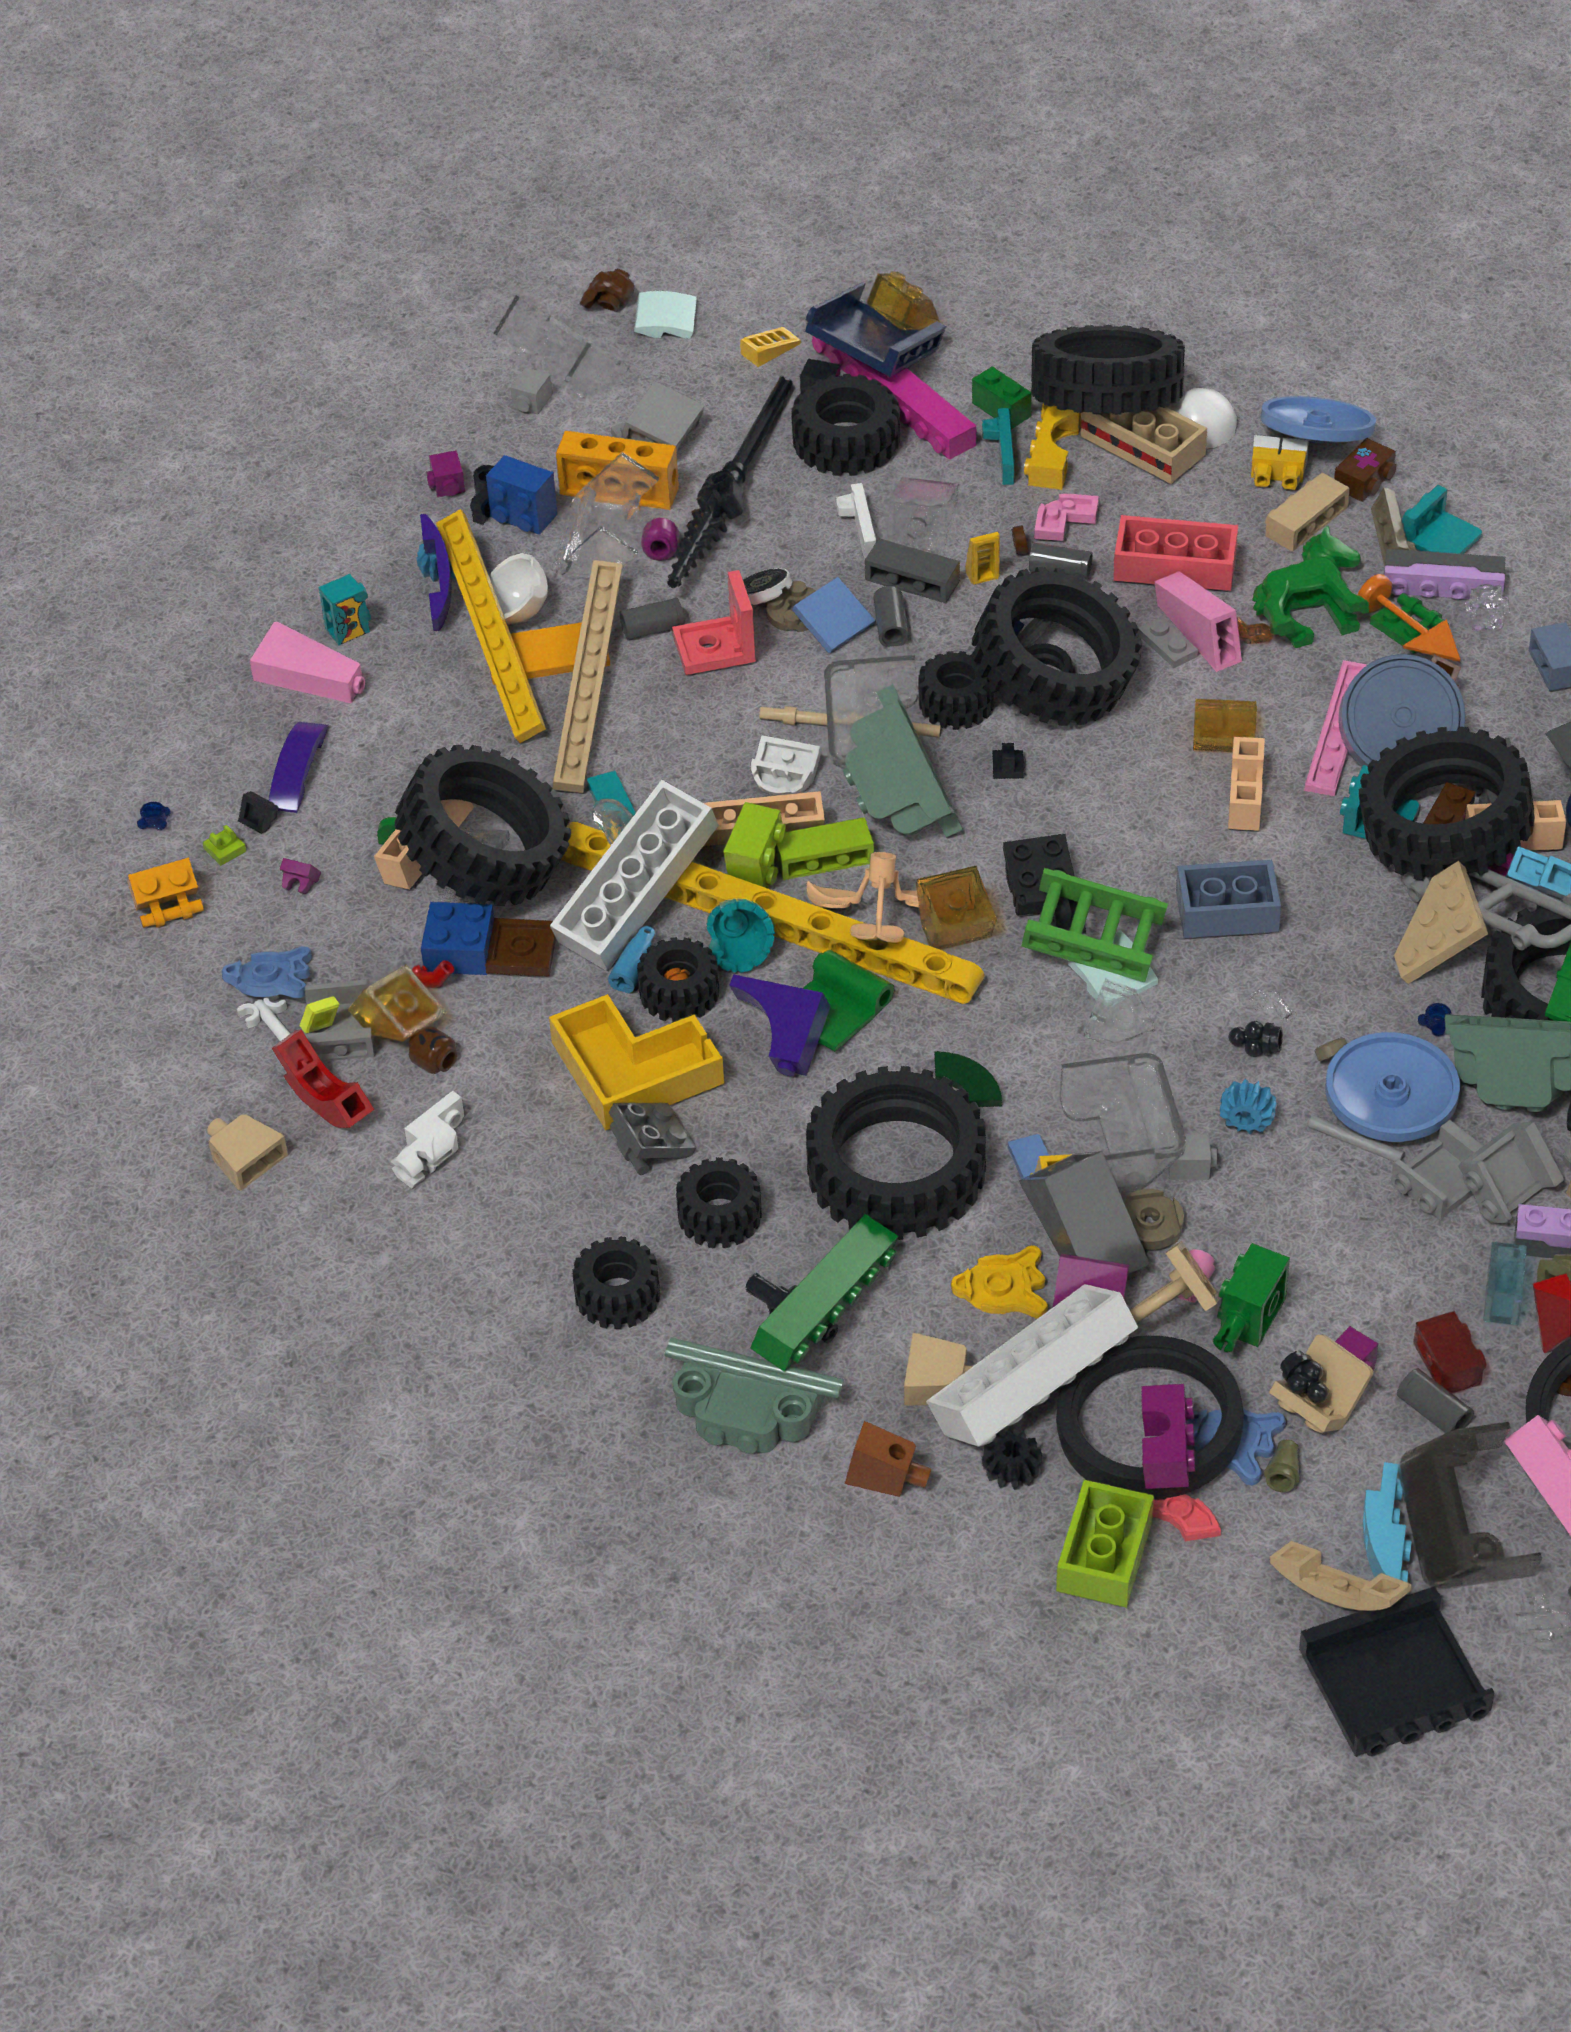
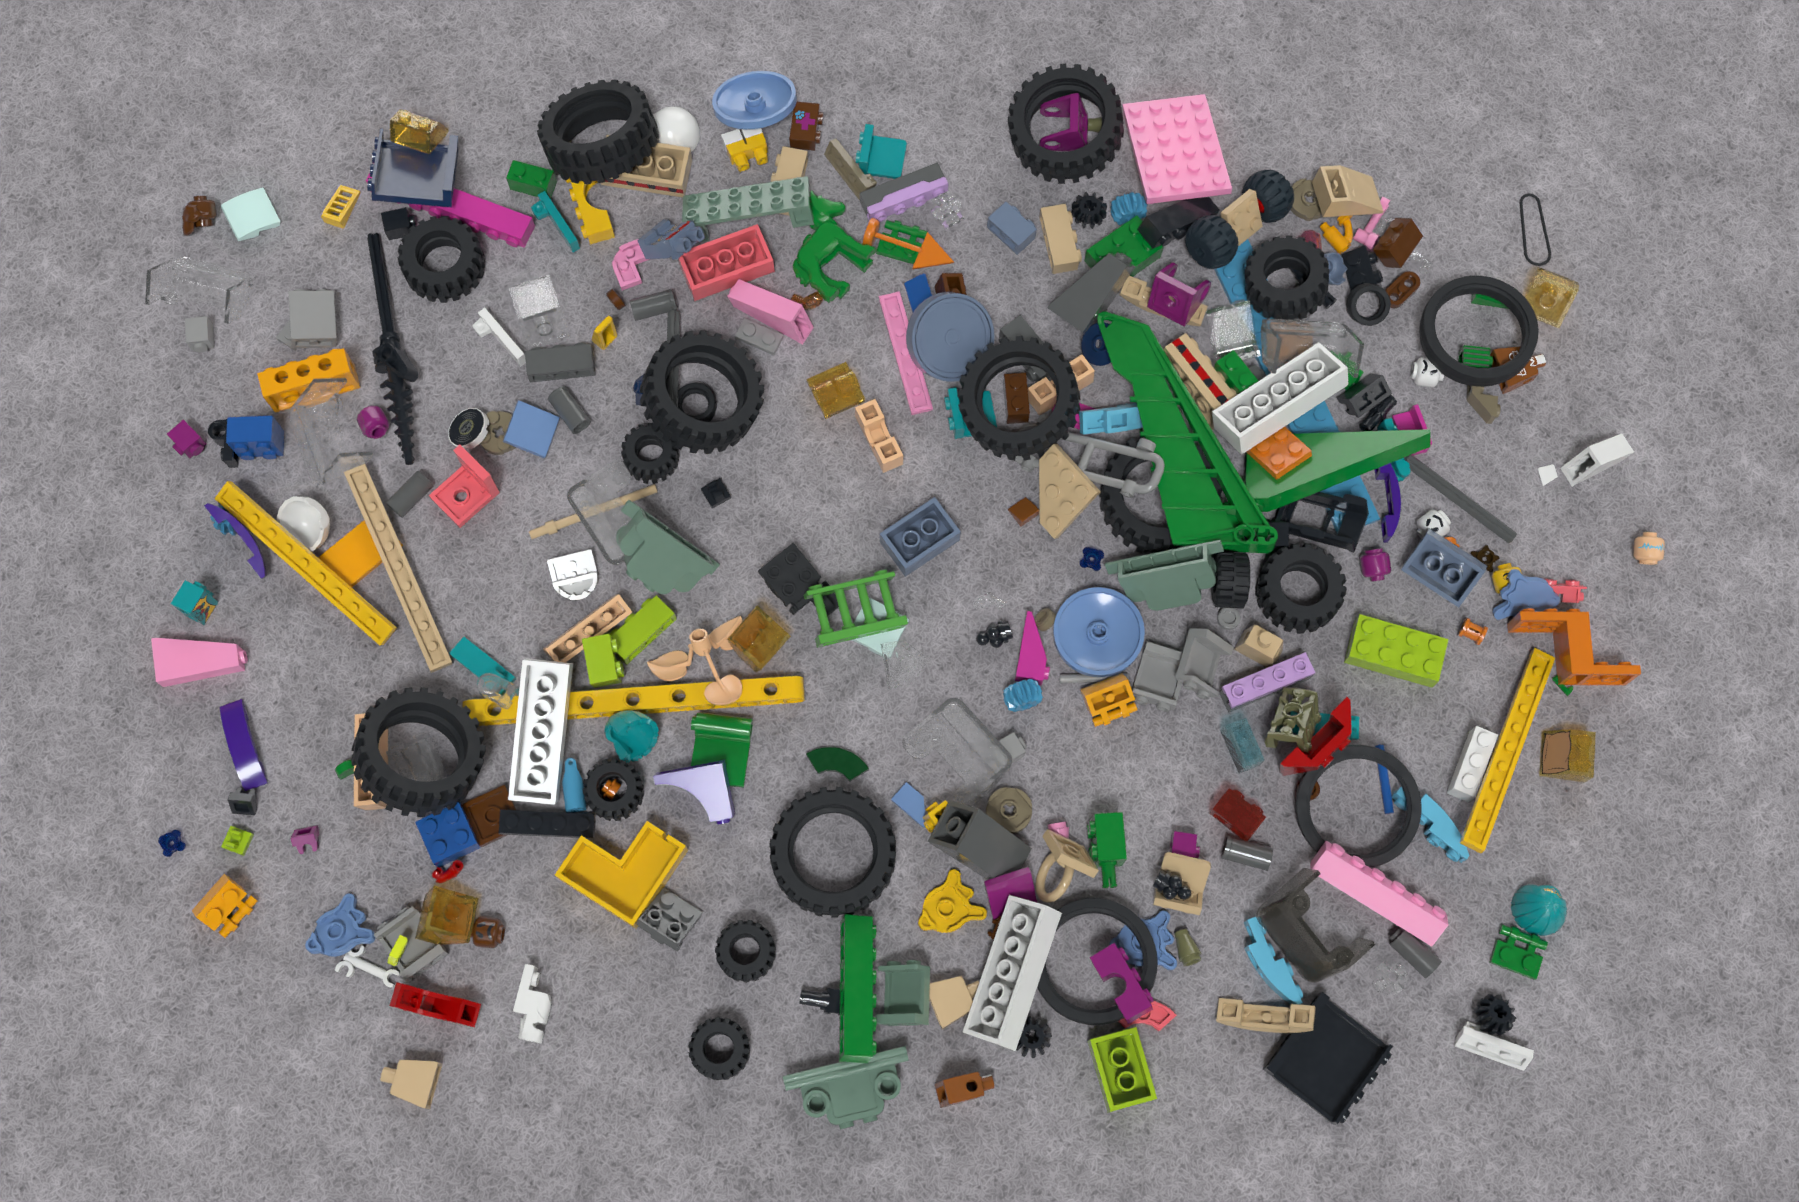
camera: 35 degrees left, 25 degrees up
(572, 974) = (546, 824): none -> black plate
(885, 1334) = (905, 994): none -> sand green panel
(1122, 500) = (670, 240): none -> sand blue hips
(1290, 1072) = (1032, 655): none -> dark pink slope
(1295, 514) = (750, 202): none -> sand green bracket
(1358, 1152) = (1108, 695): none -> light orange brick
(1381, 938) = (1023, 511): none -> dark orange slope

